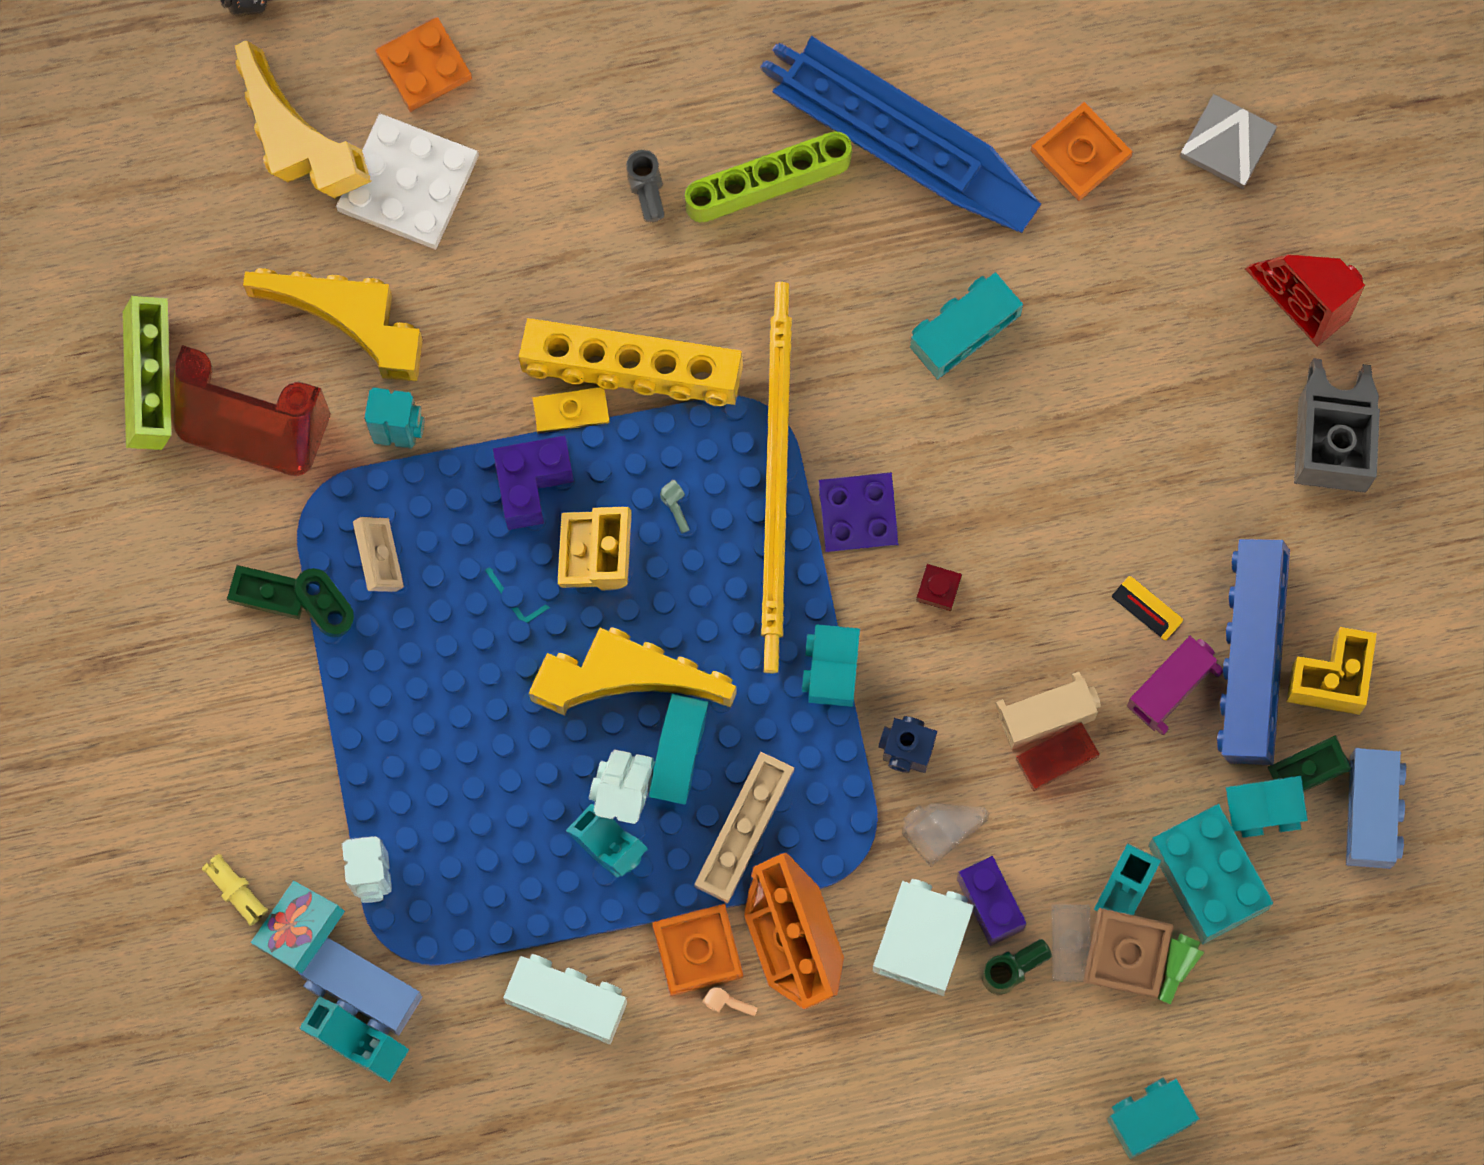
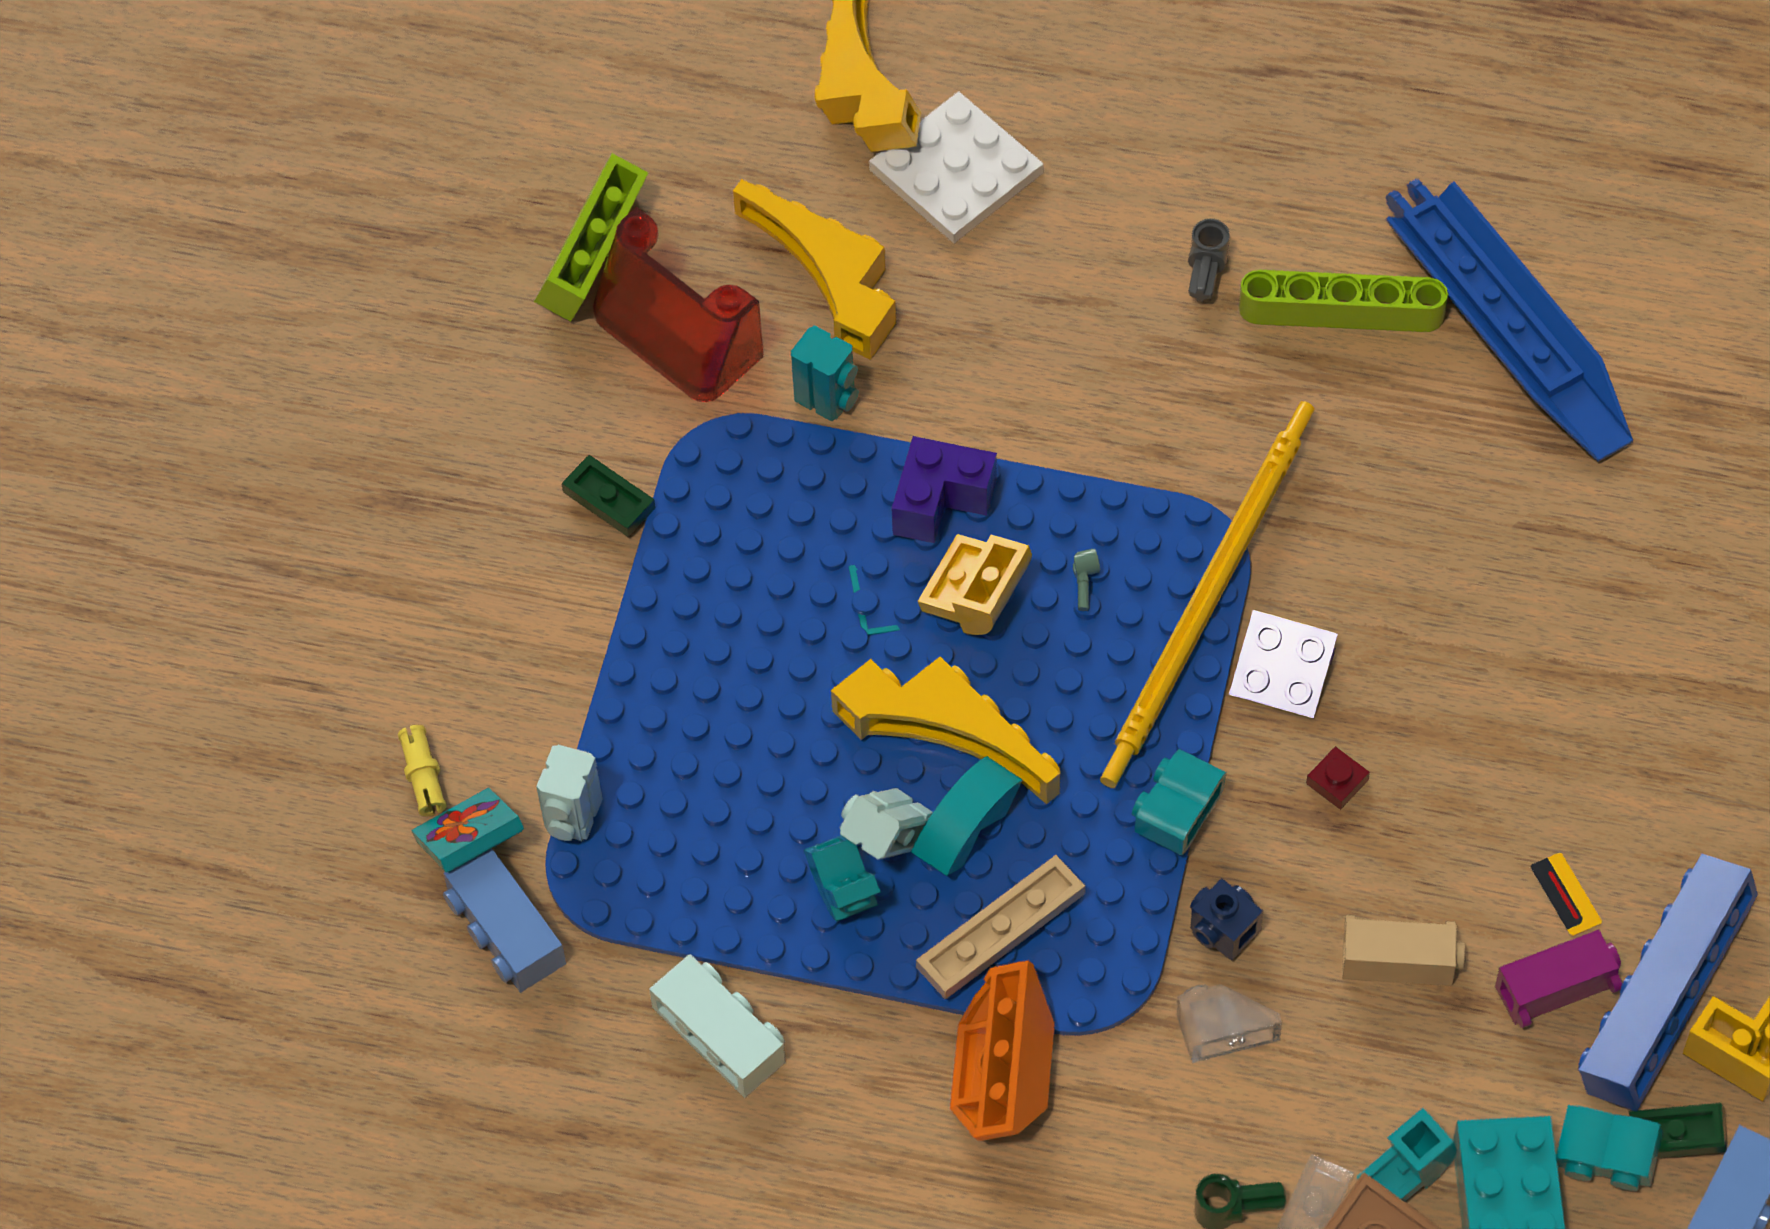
camera: 25 degrees right, 15 degrees down
(323, 604) = (660, 525): dark green plate -> none
(354, 1039) = (468, 970): teal brick -> none
(378, 554) = (741, 499): tan plate -> none
(423, 64) = (1028, 65): orange plate -> none
(570, 410) = (1021, 445): yellow plate -> none
(616, 348) = (1106, 420): yellow brick -> none
(697, 950) = (889, 1038): orange tile -> none
(717, 998) = (887, 1095): light nougat hand -> none
(923, 936) = (1146, 1126): light aqua brick -> none
(965, 324) = (1491, 525): teal brick -> none
(992, 900) = (1242, 1118): dark purple brick -> none
(1057, 756) = (1389, 1001): clear red plate -> none
(1081, 151) = (1702, 404): orange plate -> none

